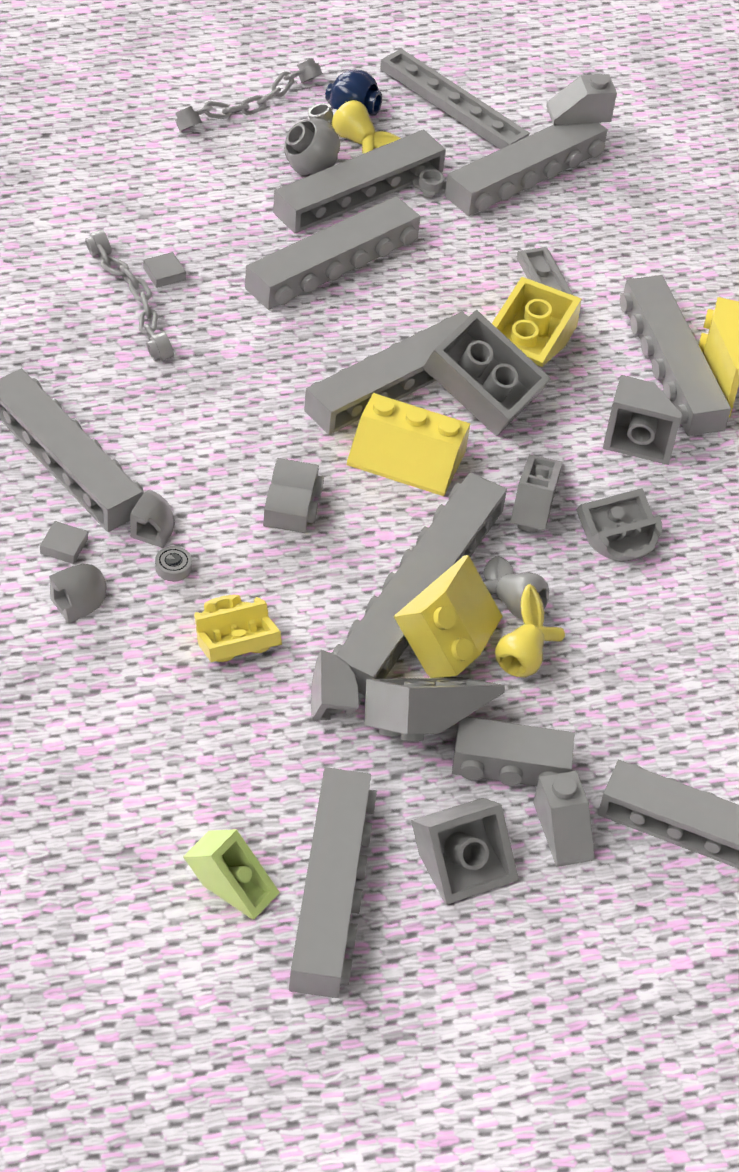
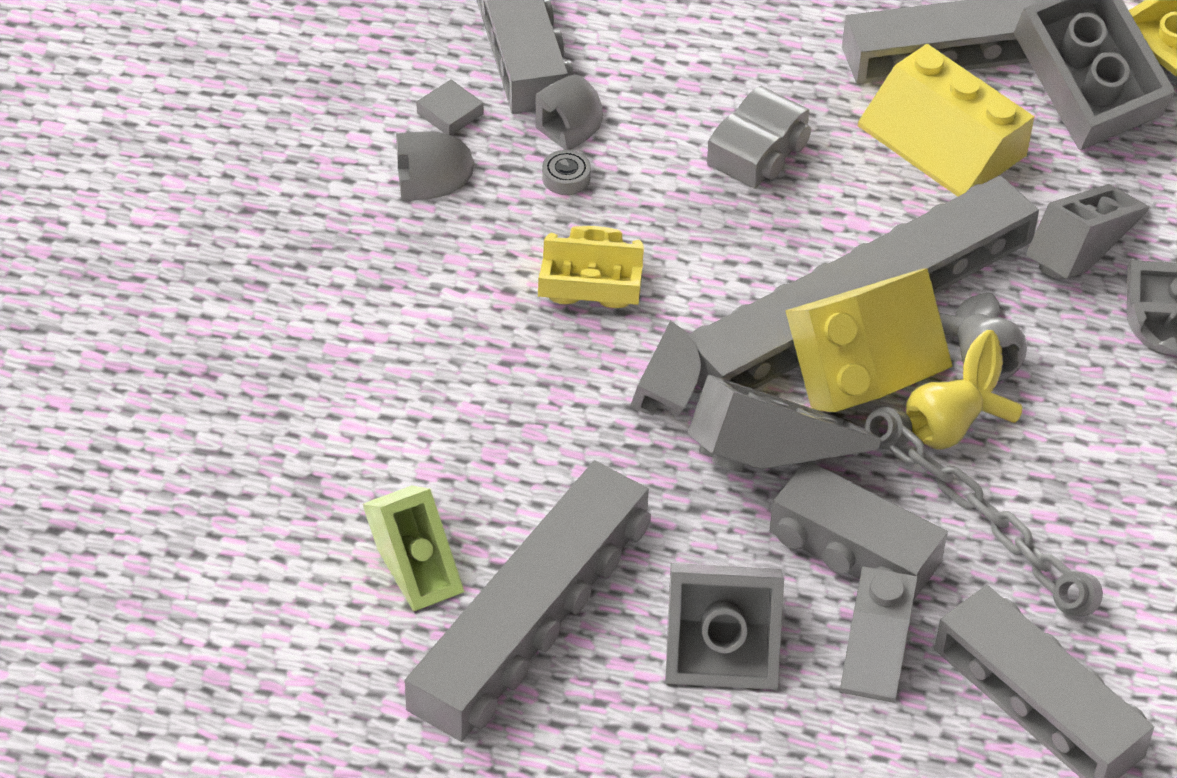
camera: 30 degrees right, 0 degrees up
(501, 675) = (898, 435): none -> light grey piece

